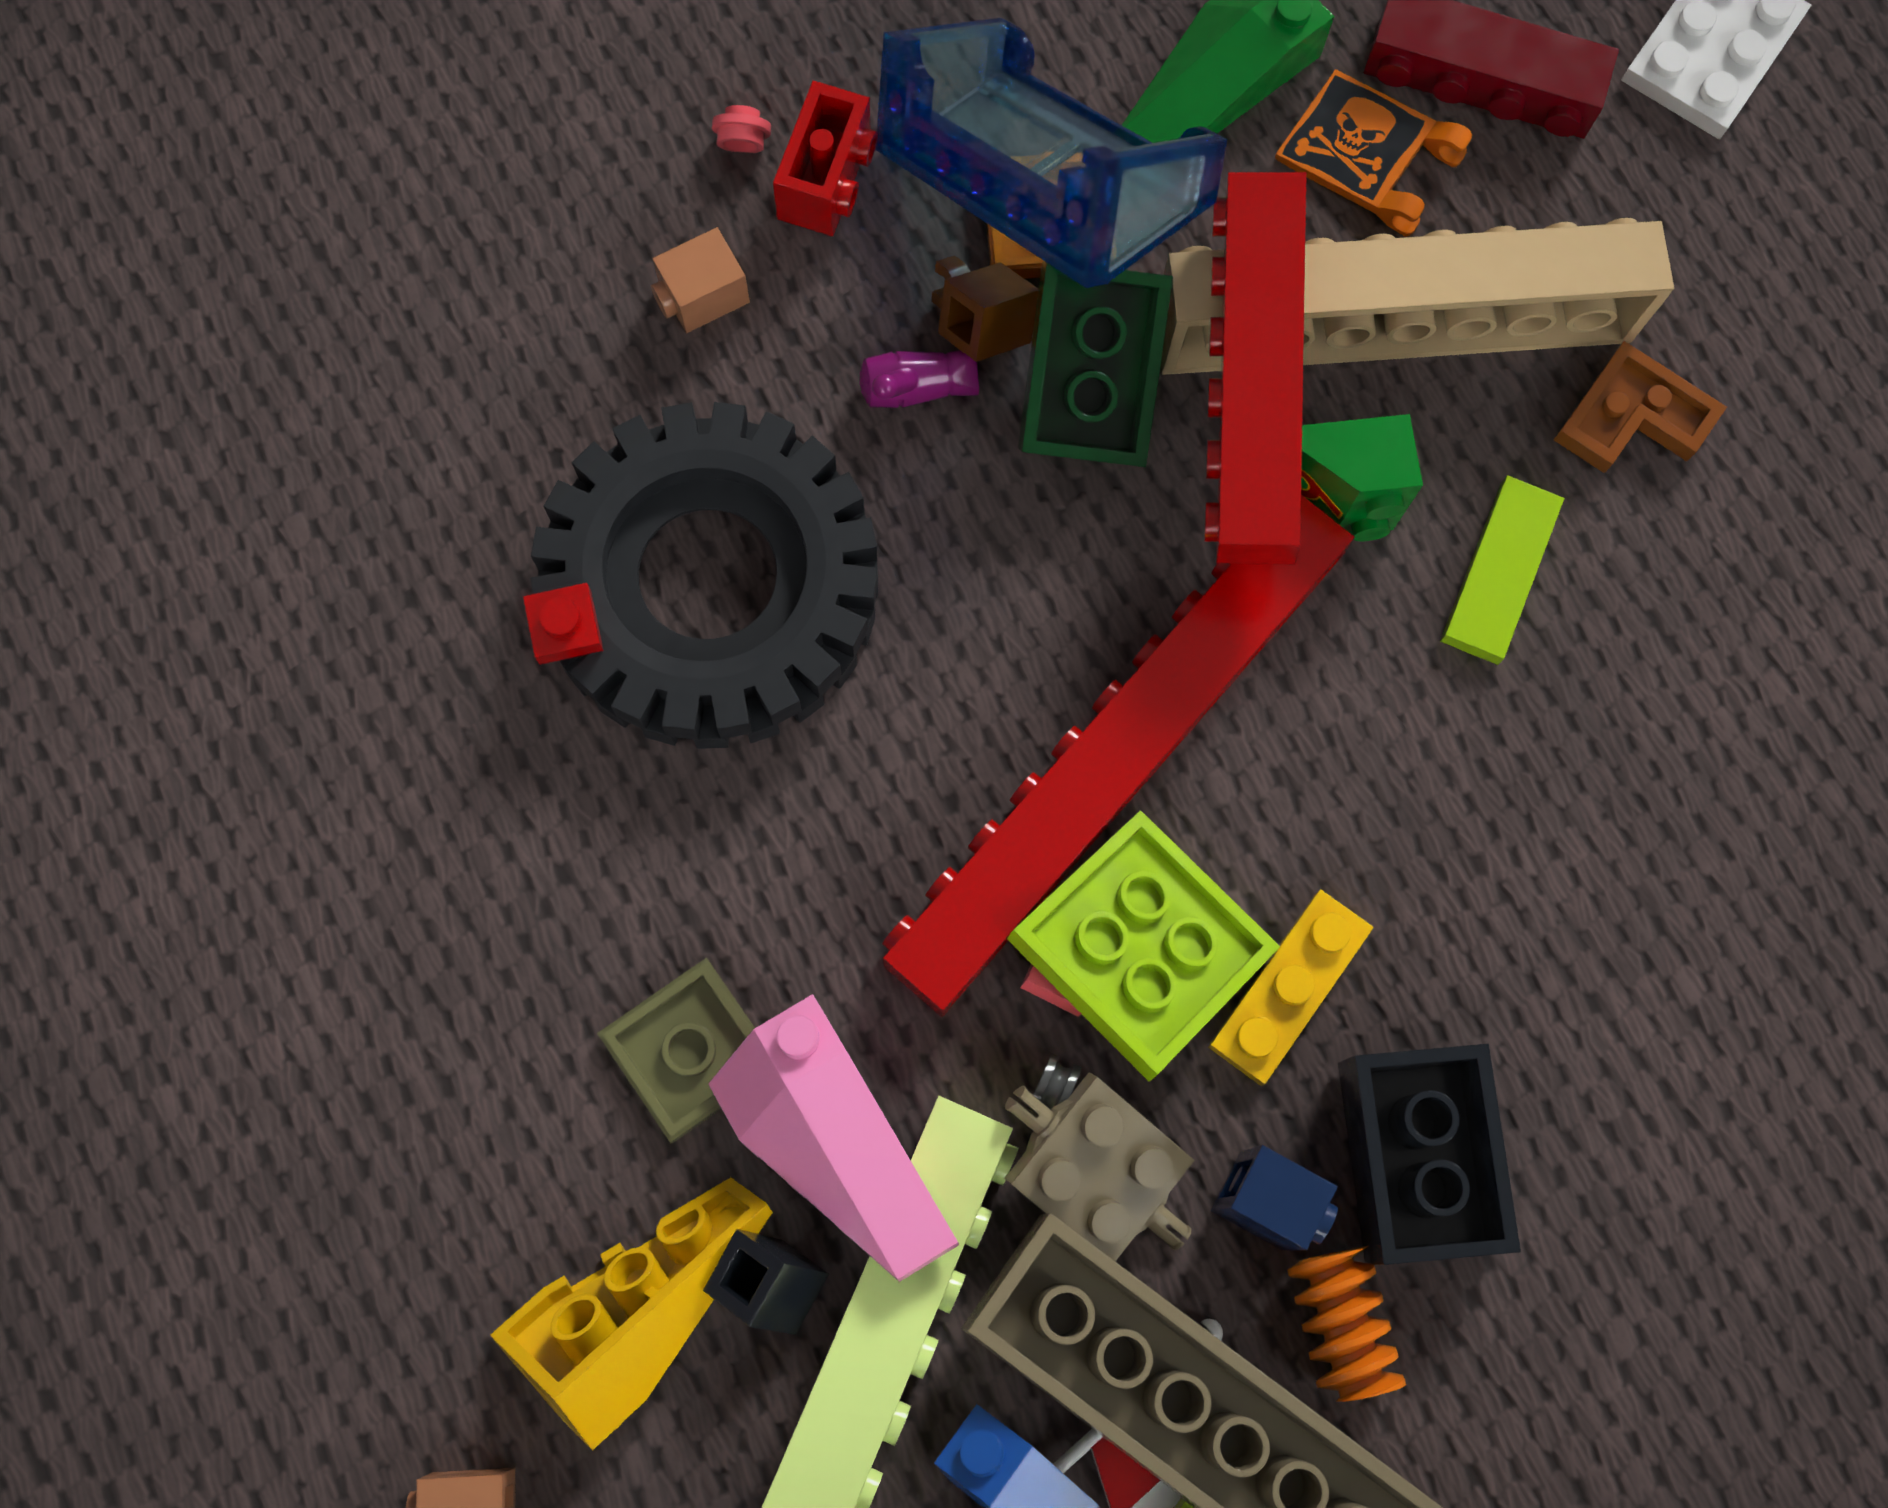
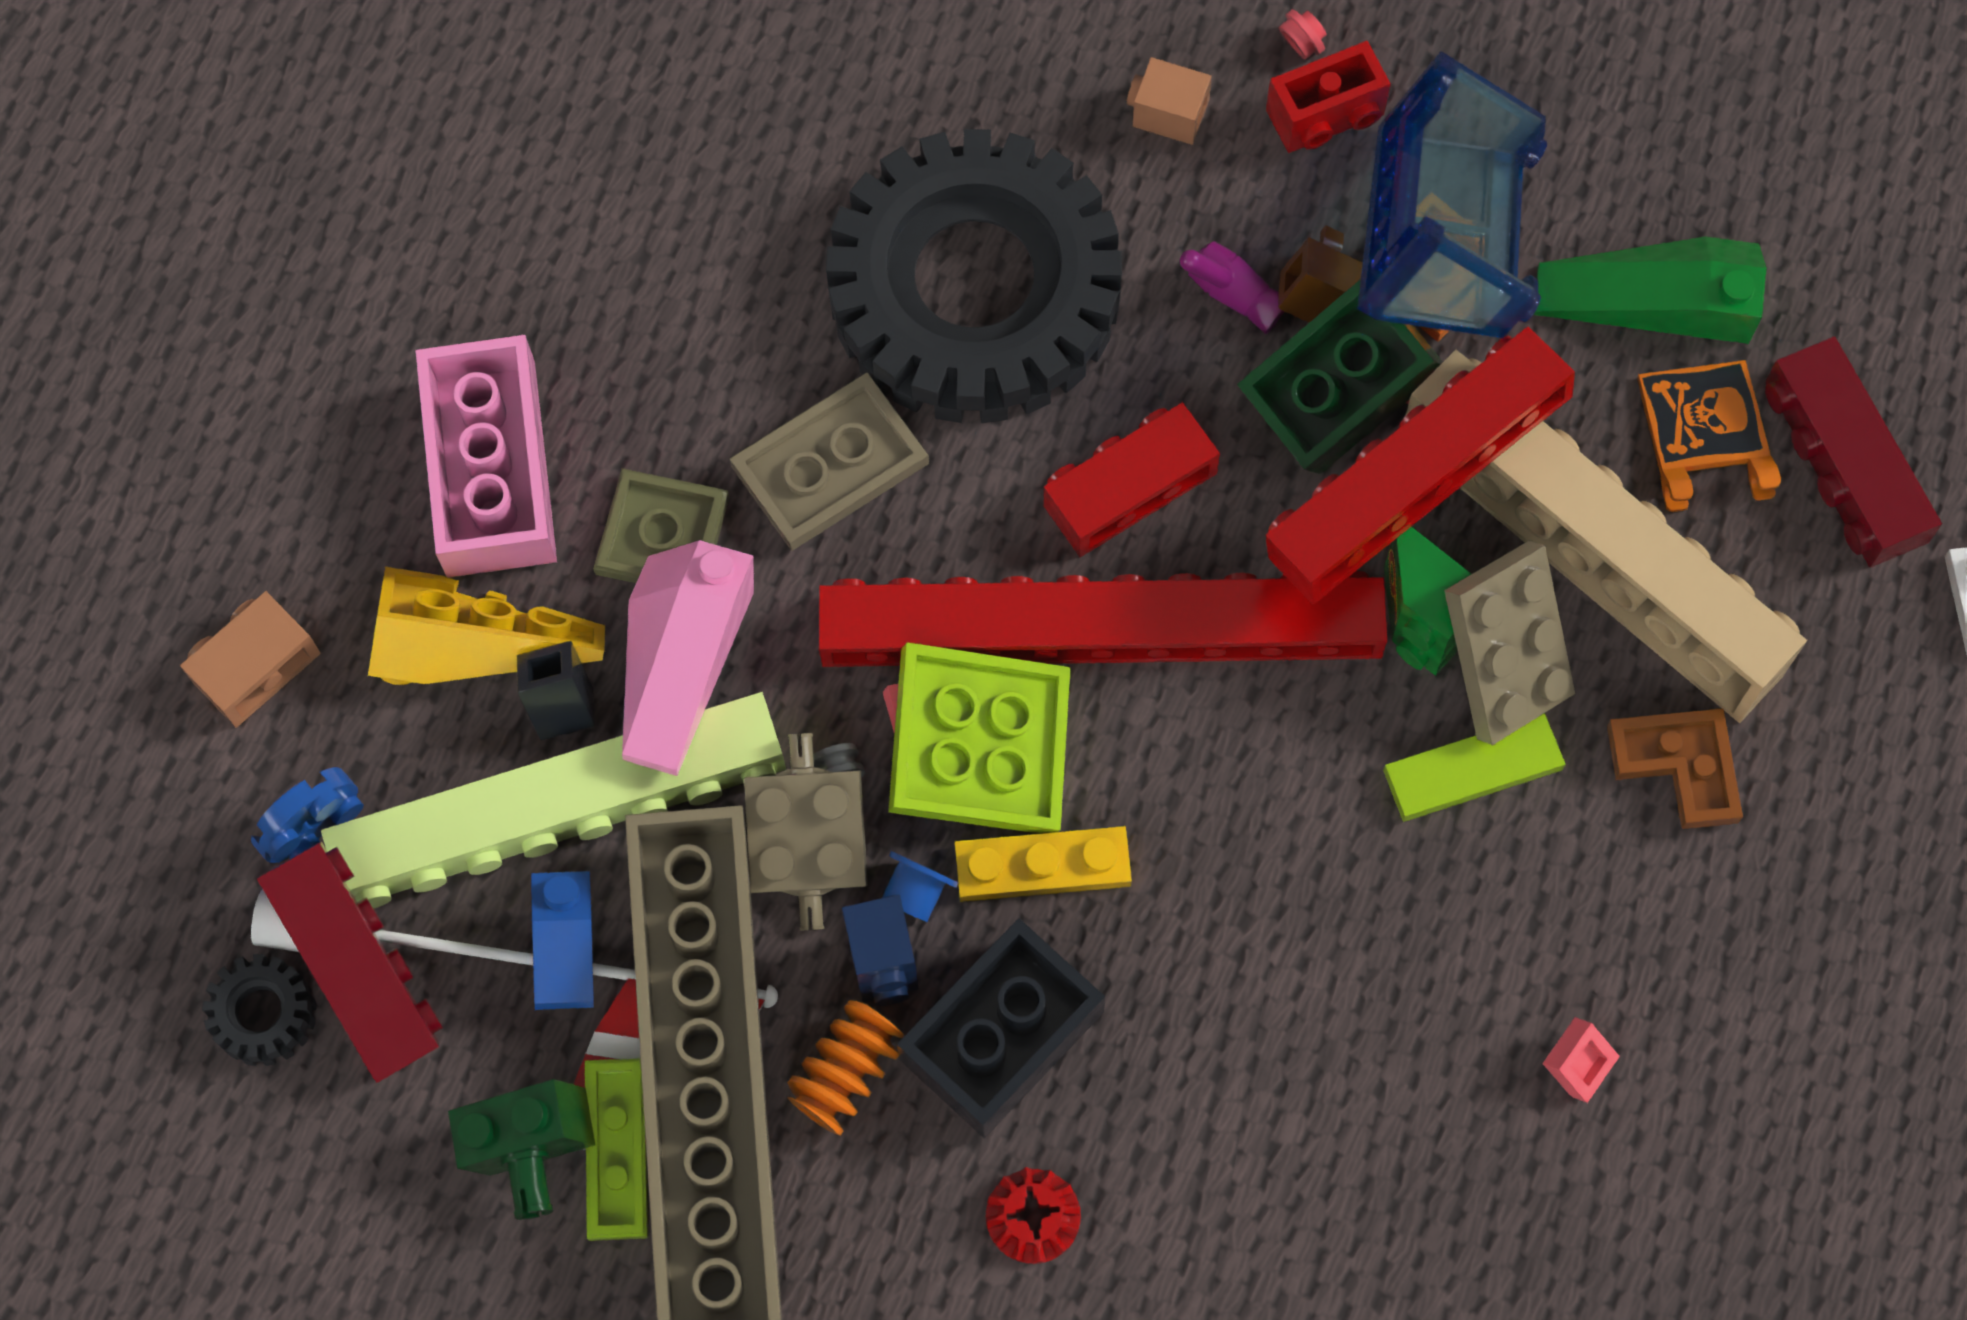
camera: 55 degrees right, 5 degrees down
(472, 1150) = (485, 456): none -> bright pink brick
(563, 623) = (852, 214): red plate -> none
(761, 847) = (829, 461): none -> dark tan plate
(1011, 612) = (1130, 478): none -> red brick
(1227, 1114) = (917, 886): none -> blue piece
(1452, 441) = (1510, 642): none -> dark tan plate
(1571, 1277) = (1015, 1236): none -> red gear
(1825, 707) = (1581, 1059): none -> coral plate

